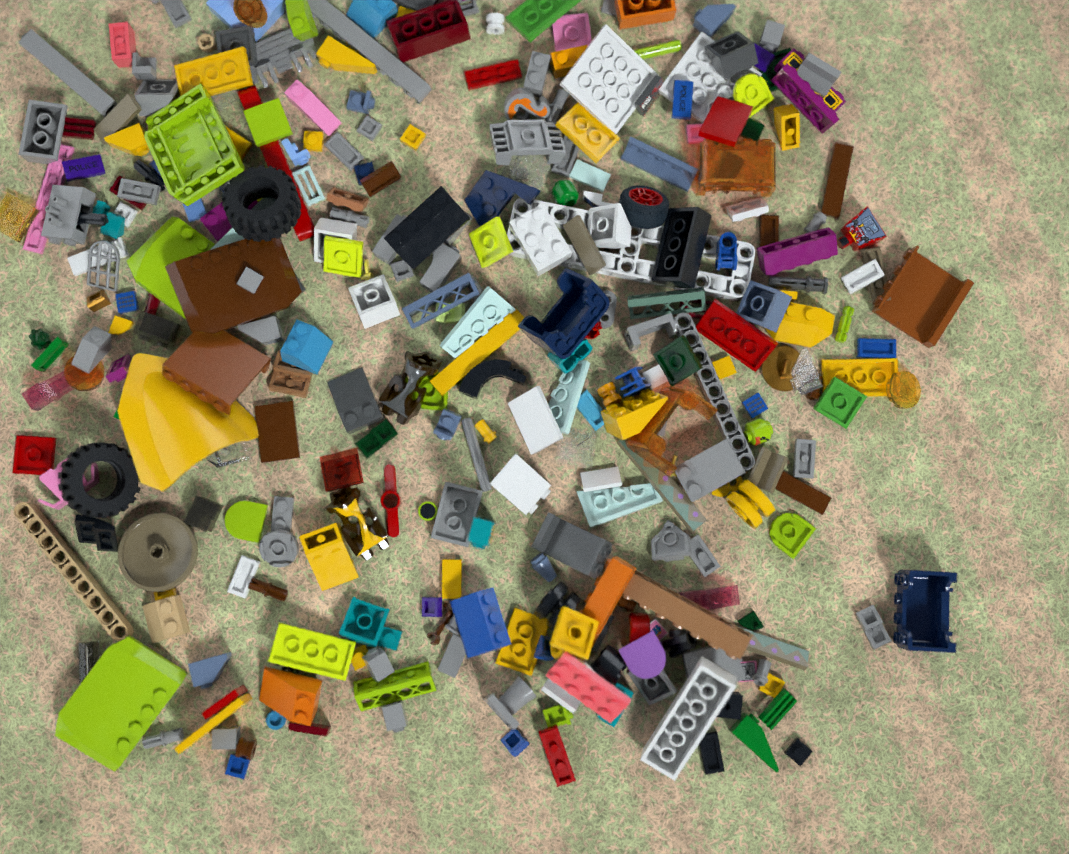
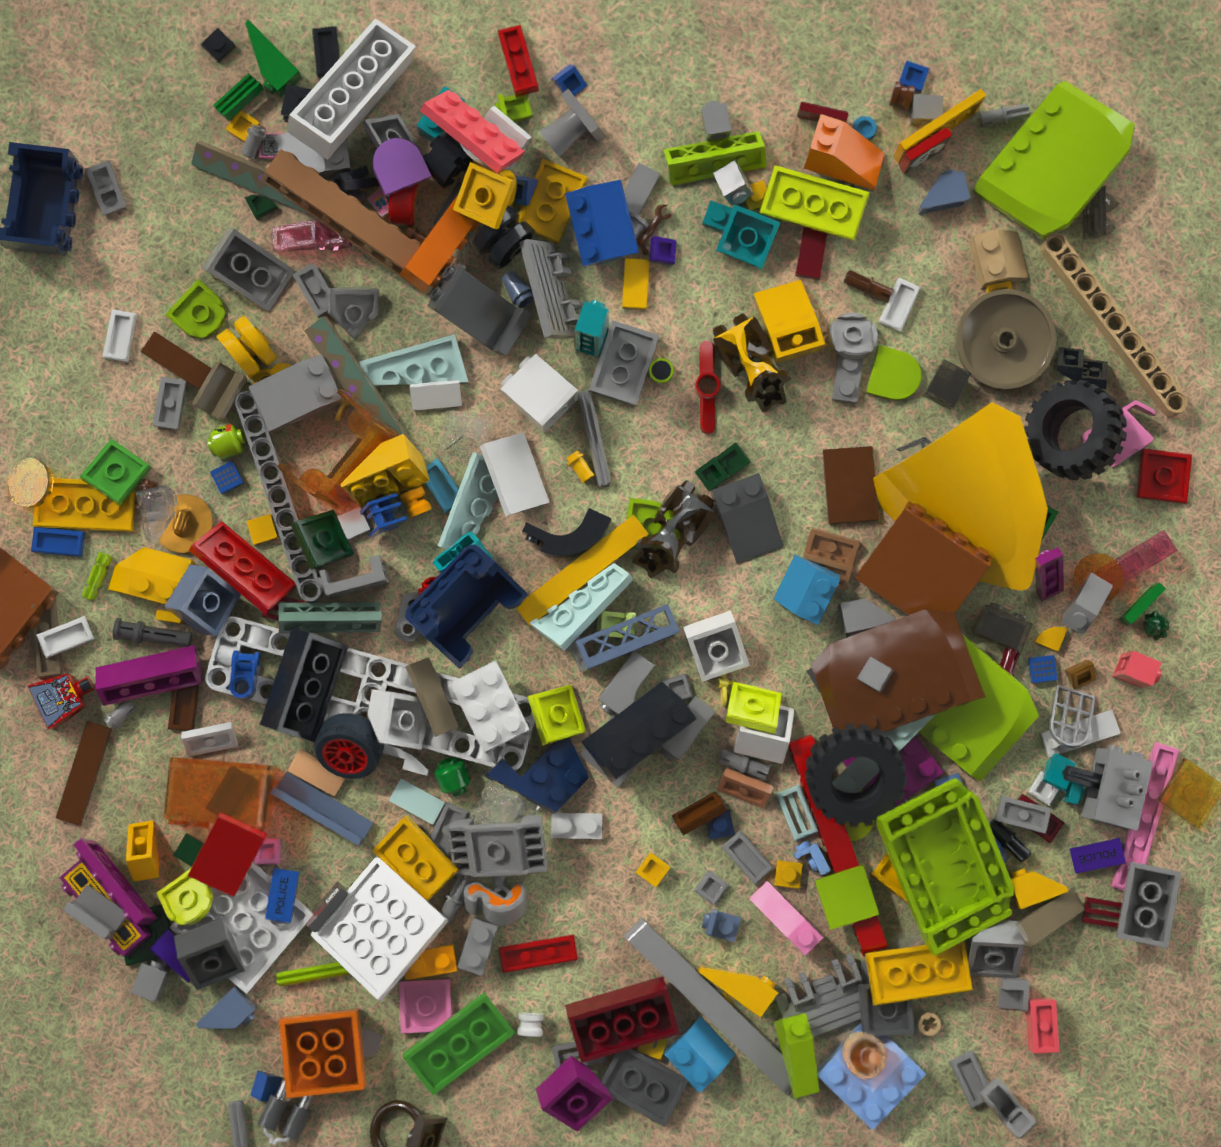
camera: 175 degrees left, 0 degrees up
(52, 302) = (1138, 669): none -> coral brick
(67, 72) = (1117, 989): light grey brick -> none
(315, 612) = (811, 253): none -> dark red tile
(341, 470) = (769, 429): clear red piece -> none
(447, 424) = (629, 477): sand blue bracket -> none
(470, 165) = (576, 825): none -> white plate
(518, 566) = (549, 293): none -> light grey hinge
(672, 191) = (309, 769): none -> light nougat slope
(755, 568) = (248, 269): none -> light grey slope
(848, 509) = (119, 335): none -> white tile

